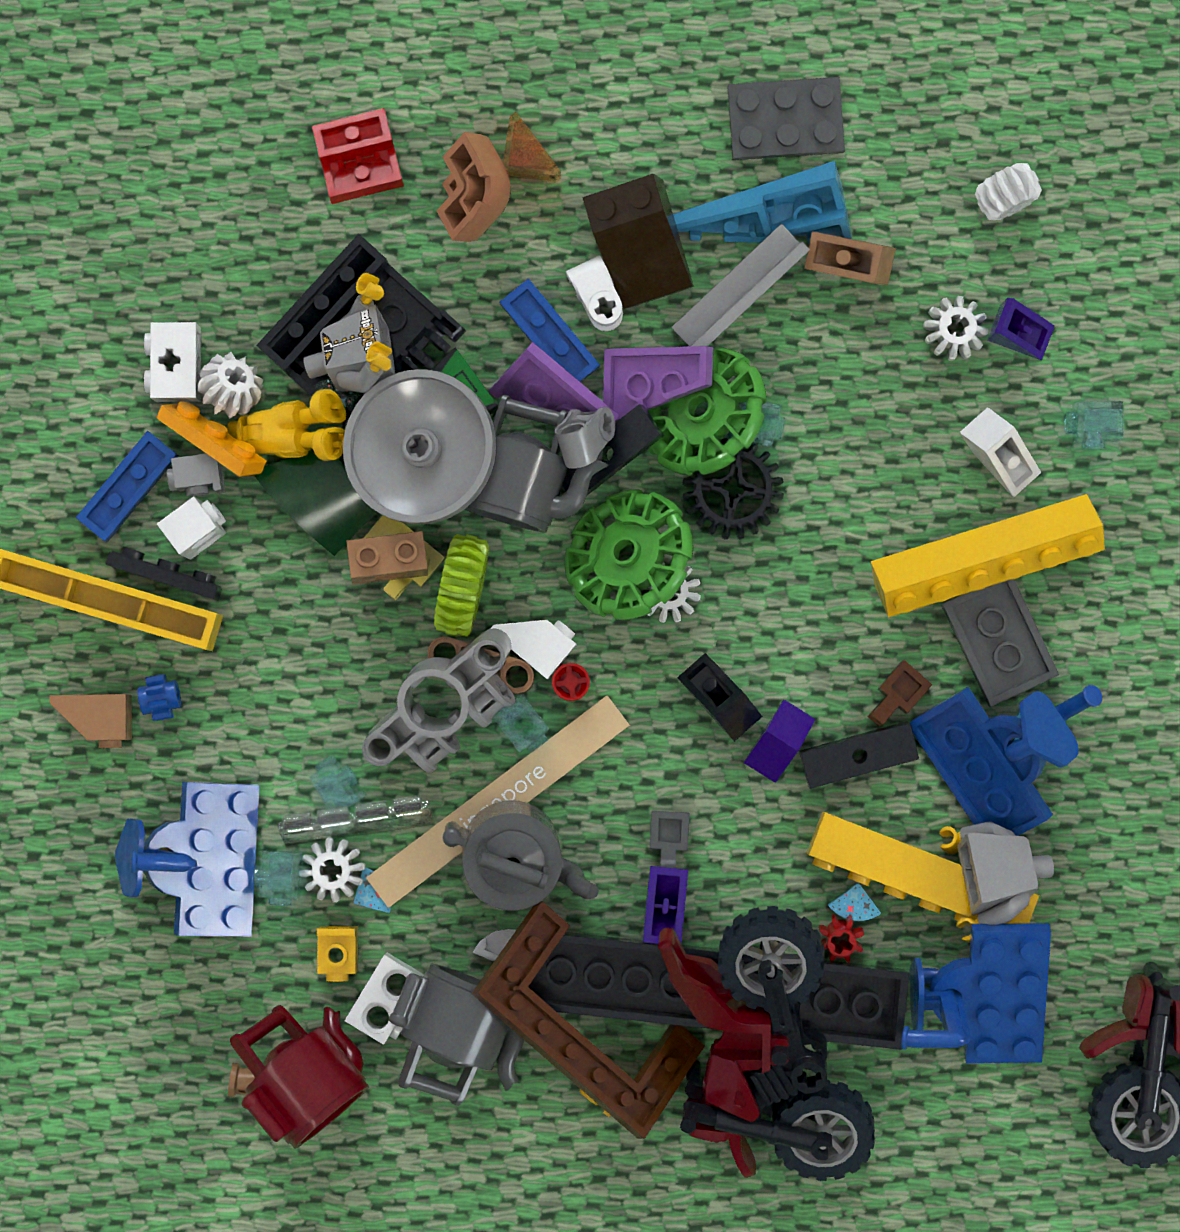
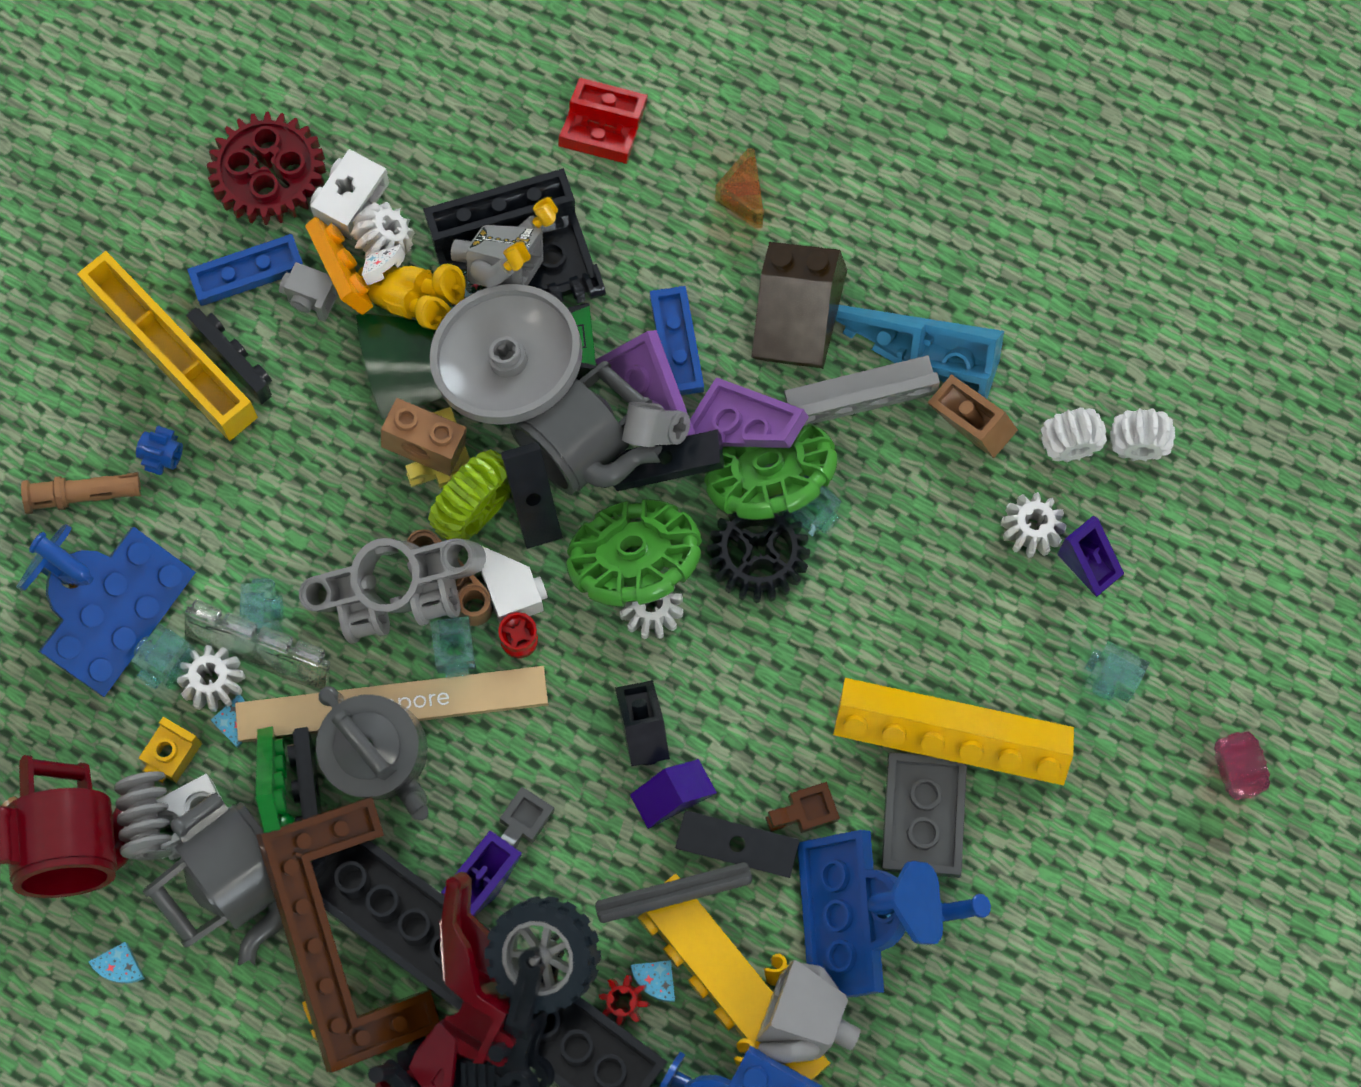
camera: 25 degrees right, 15 degrees down
(75, 410) = (290, 147): none -> dark red gear
(98, 716) = (99, 437): medium nougat slope -> none
(98, 782) = (62, 492): none -> medium nougat pin
(193, 527) = (277, 325): white brick -> none
(249, 418) = (381, 261): none -> white tile
(359, 1024) = (141, 817): none -> light grey piece
(408, 1148) = (118, 965): none -> medium azure tile
(468, 960) = (271, 780): none -> green plate
(473, 916) = (306, 787): none -> black tile
(475, 187) = (685, 189): nougat brick -> none
(512, 556) = (531, 495): none -> black tile
(594, 289) = (737, 327): white piece -> none
(786, 118) = (981, 280): dark grey plate -> none
(834, 831) = (673, 892): none -> dark grey axle
(948, 226) = (1073, 434): none -> white gear
(1001, 451) = (1016, 650): white slope -> none

